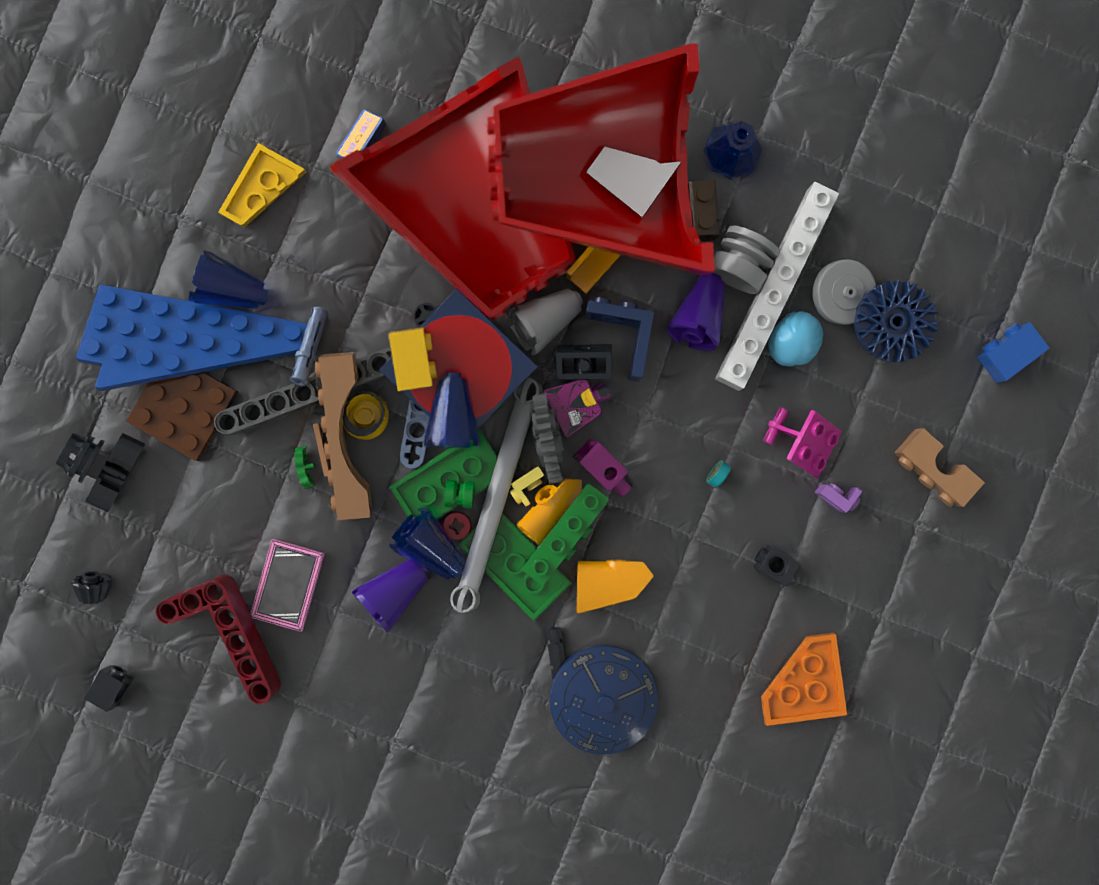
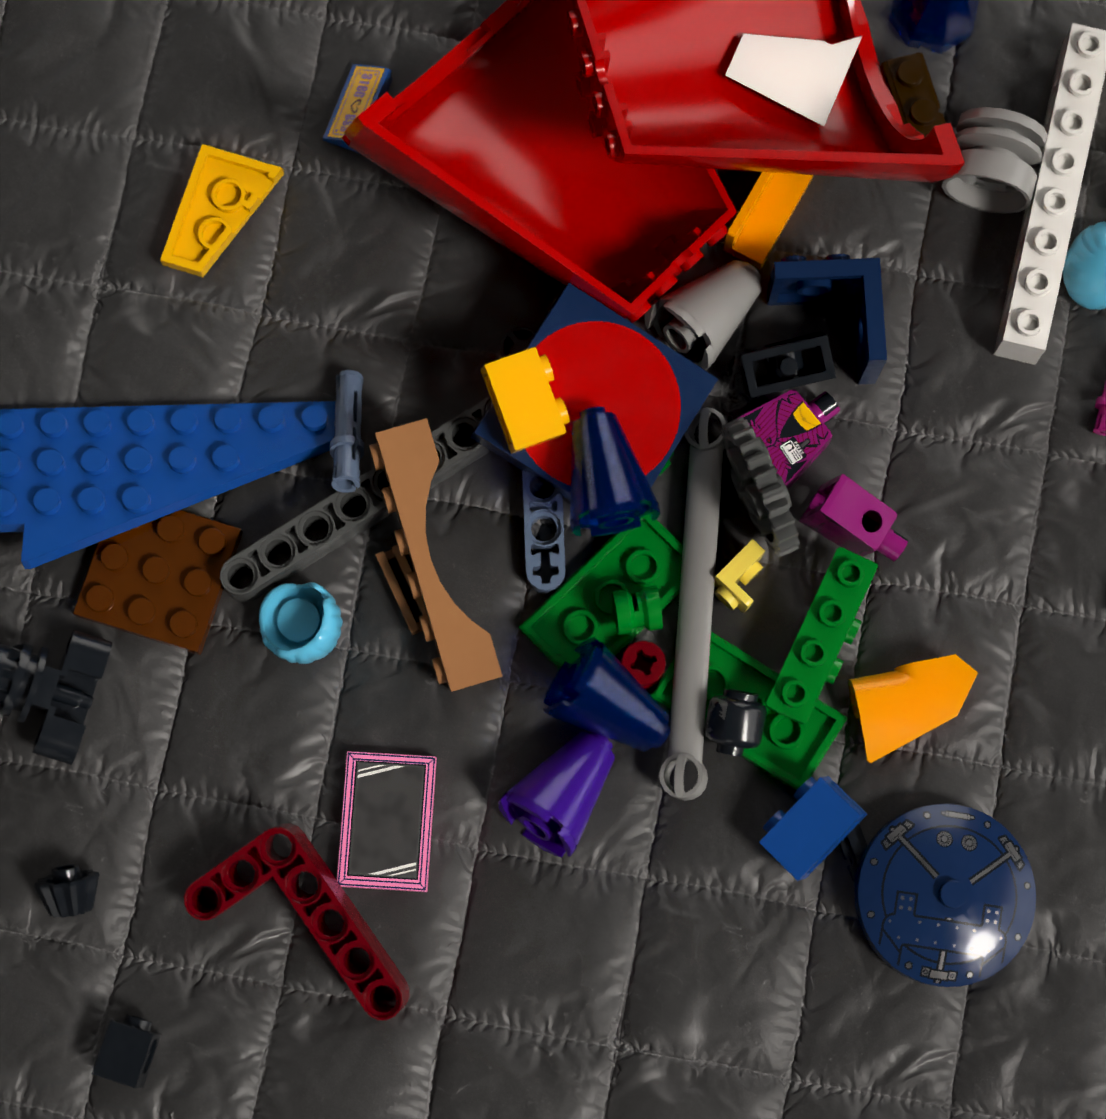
camera: 15 degrees left, 10 degrees down
(225, 284) = (196, 365): clear blue cone -> none
(257, 458) = (300, 622): none -> medium azure piece
(302, 466) = (373, 626): green piece -> none
(365, 415) = (457, 524): yellow piece -> none
(502, 574) = (735, 721): none -> black head
(533, 646) = (811, 826): none -> blue brick
(550, 507) = (787, 598): light orange panel -> none
(700, 314) = (948, 259): dark purple cone -> none
(718, 474) = (1038, 495): teal tile -> none

